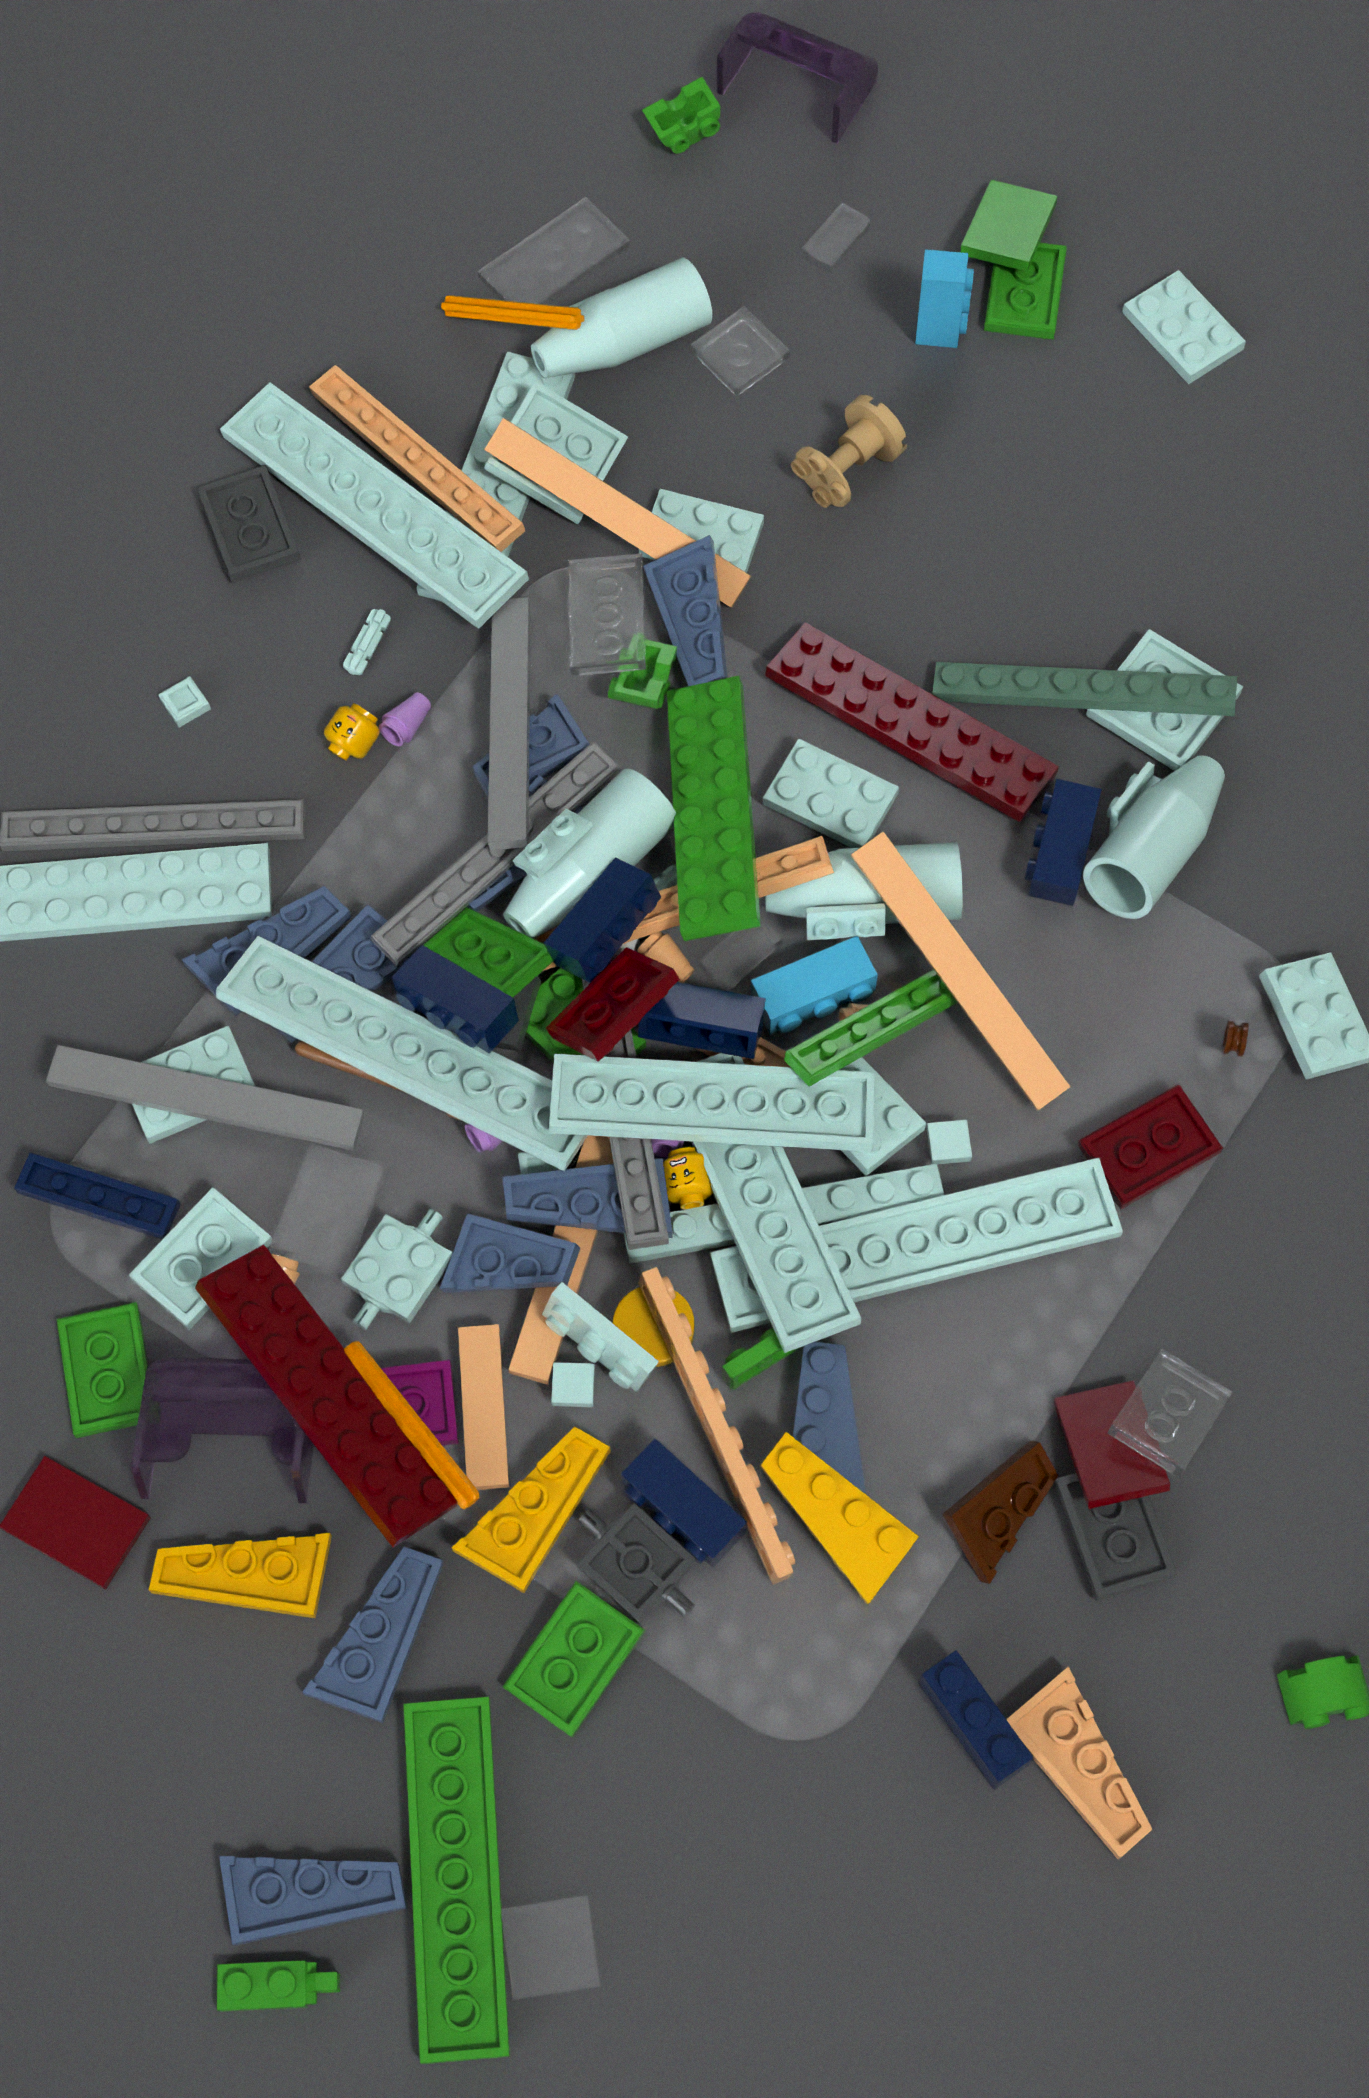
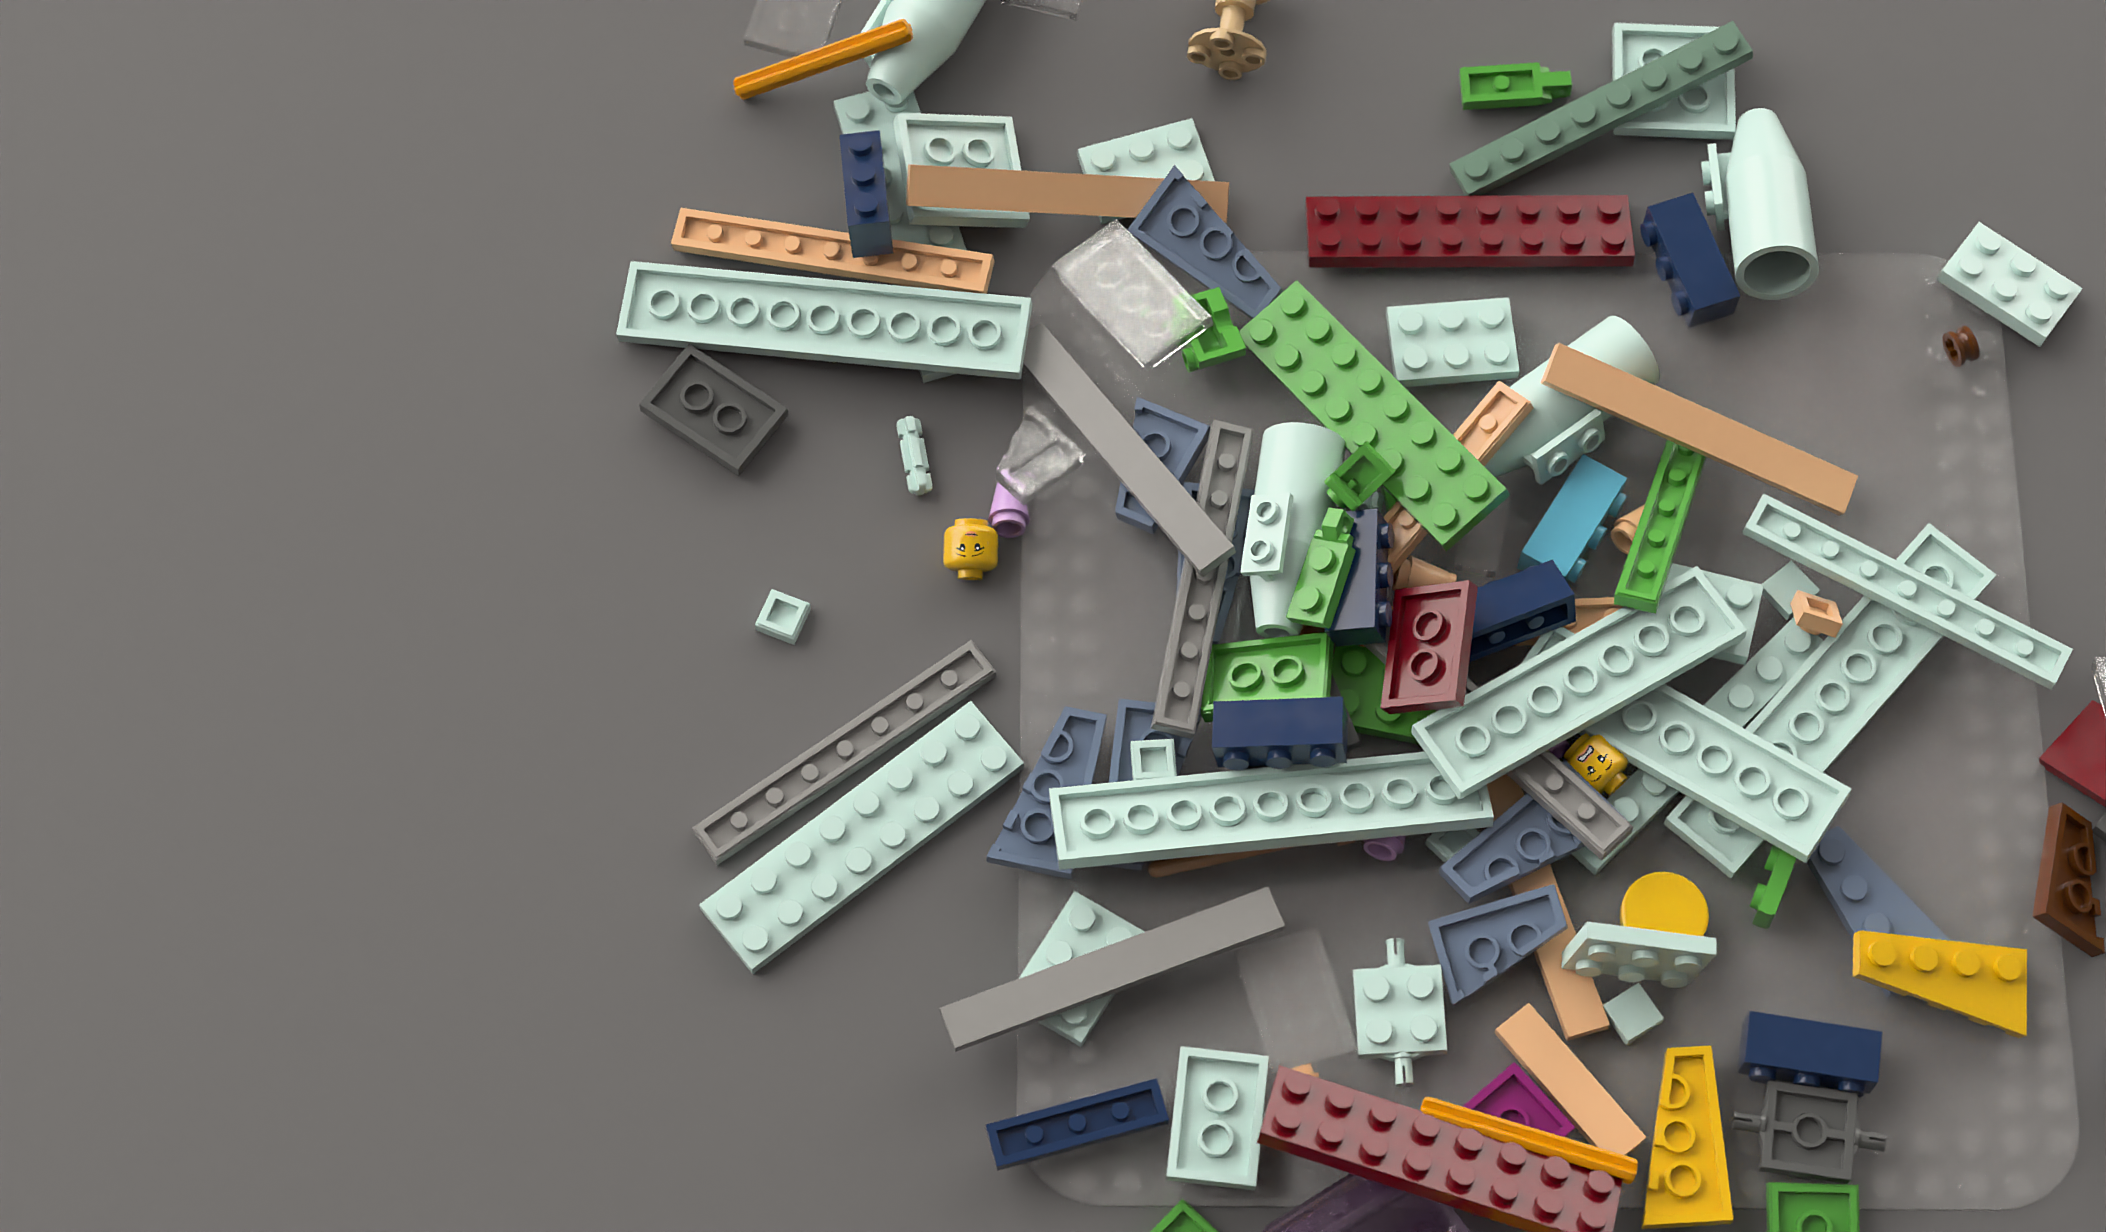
camera: 35 degrees left, 0 degrees up
(355, 963) = (1153, 759): none -> light aqua tile
(445, 693) = (1037, 458): none -> clear wing
(463, 425) = (866, 194): none -> dark blue brick
(575, 897) = (1324, 572): none -> bright green hinge
(654, 843) = (1358, 477): none -> bright green bracket
(723, 1439) = (1779, 959): light nougat plate -> none
(949, 1170) = (1816, 614): none -> light nougat plate
(1031, 631) = (1511, 85): none -> bright green hinge
(1035, 1199) = (1907, 591): none -> light aqua plate
(1151, 1146) = (1958, 484): dark red tile -> none

